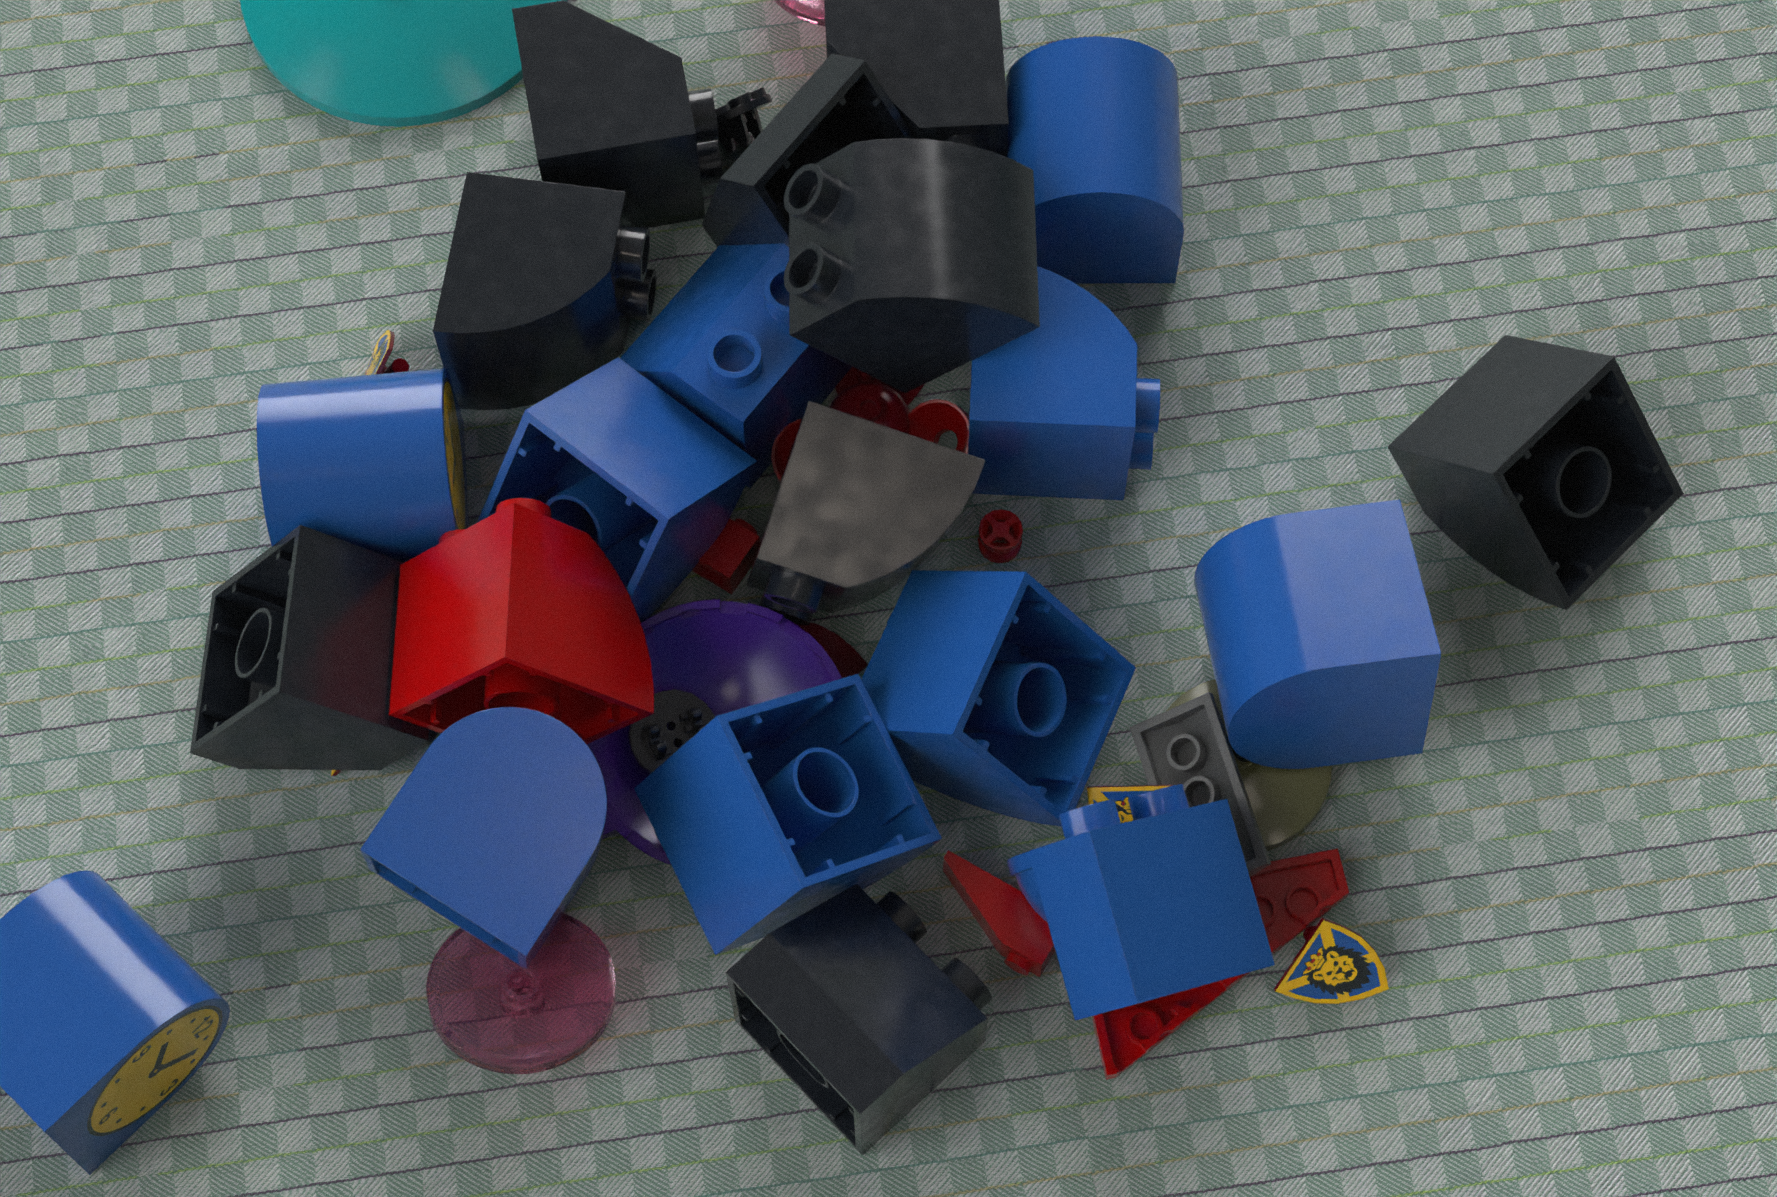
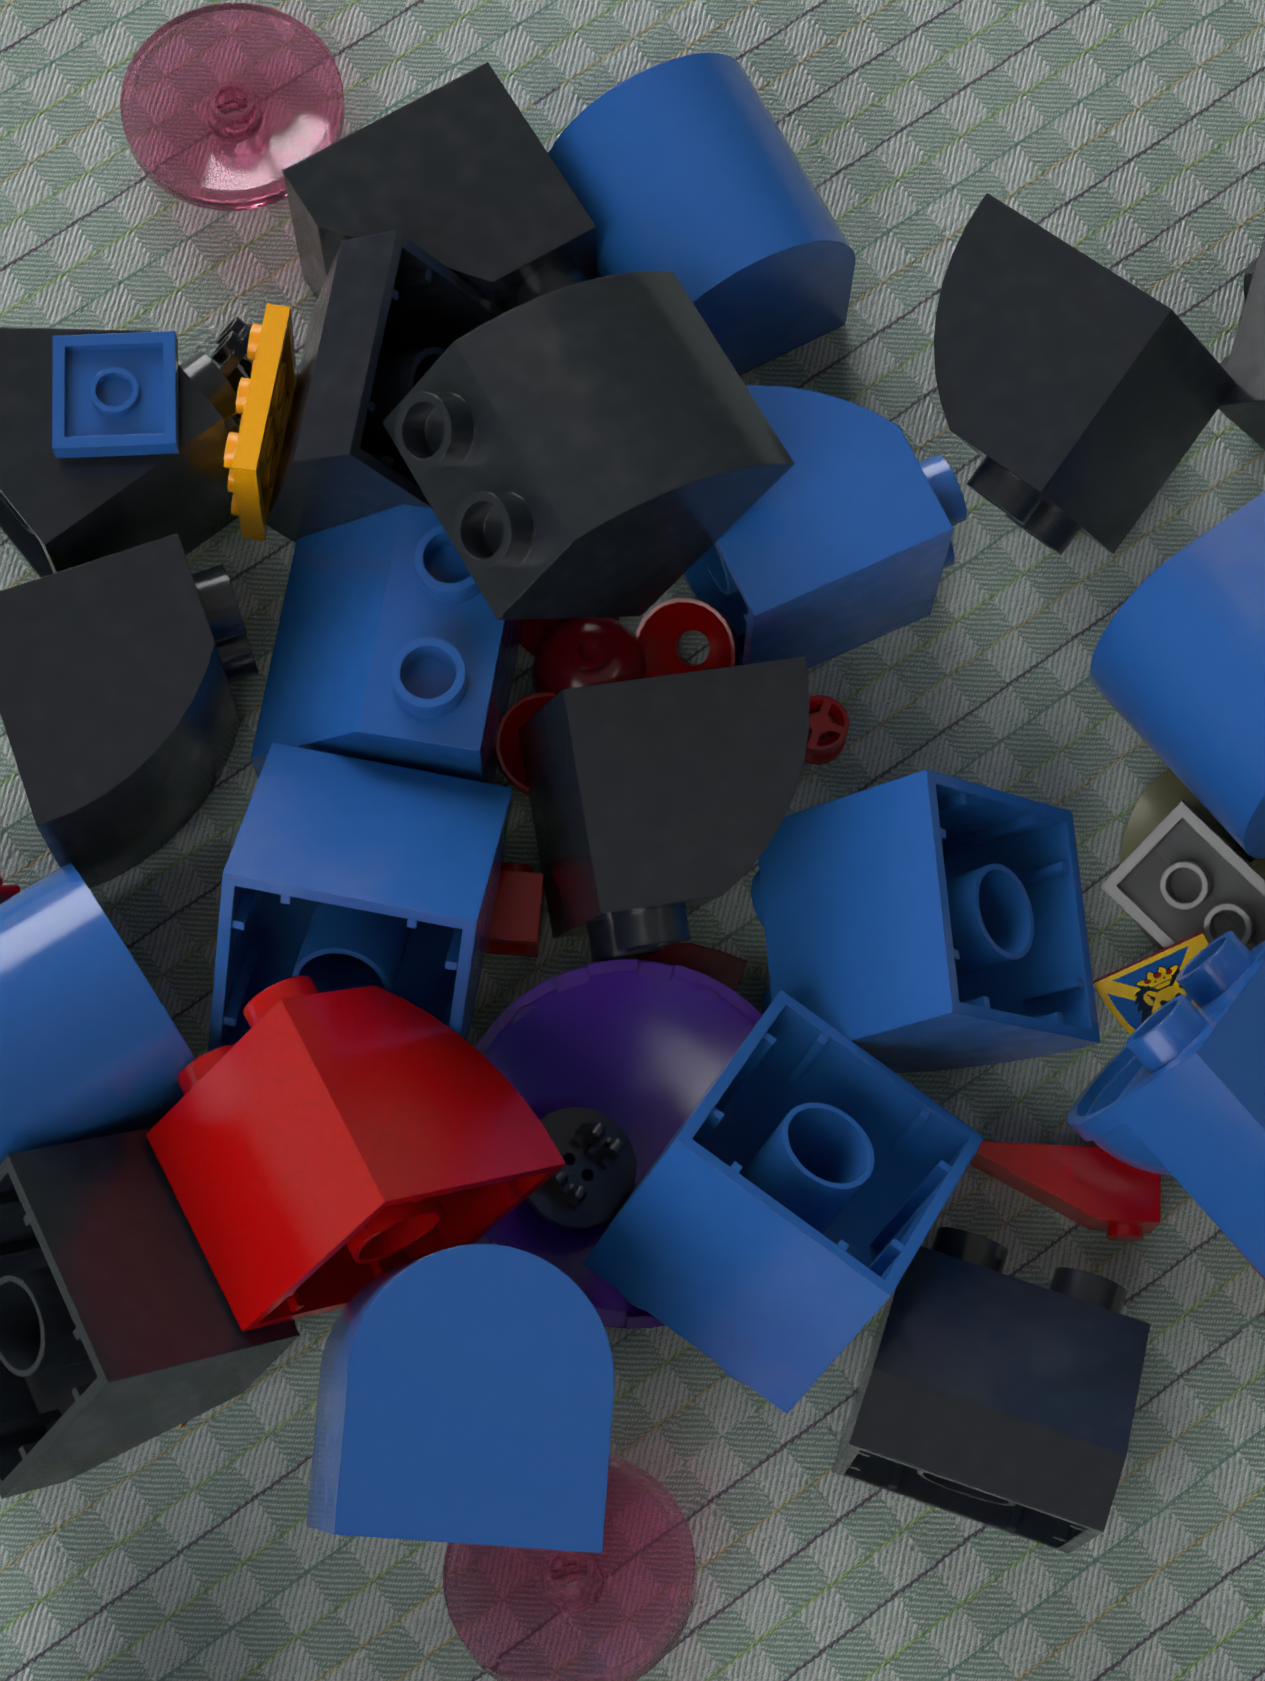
camera: 30 degrees left, 5 degrees up
(632, 85) = (115, 394): none -> blue plate
(726, 142) = (264, 413): none -> light orange plate
(1277, 379) = (1064, 381): none -> black brick

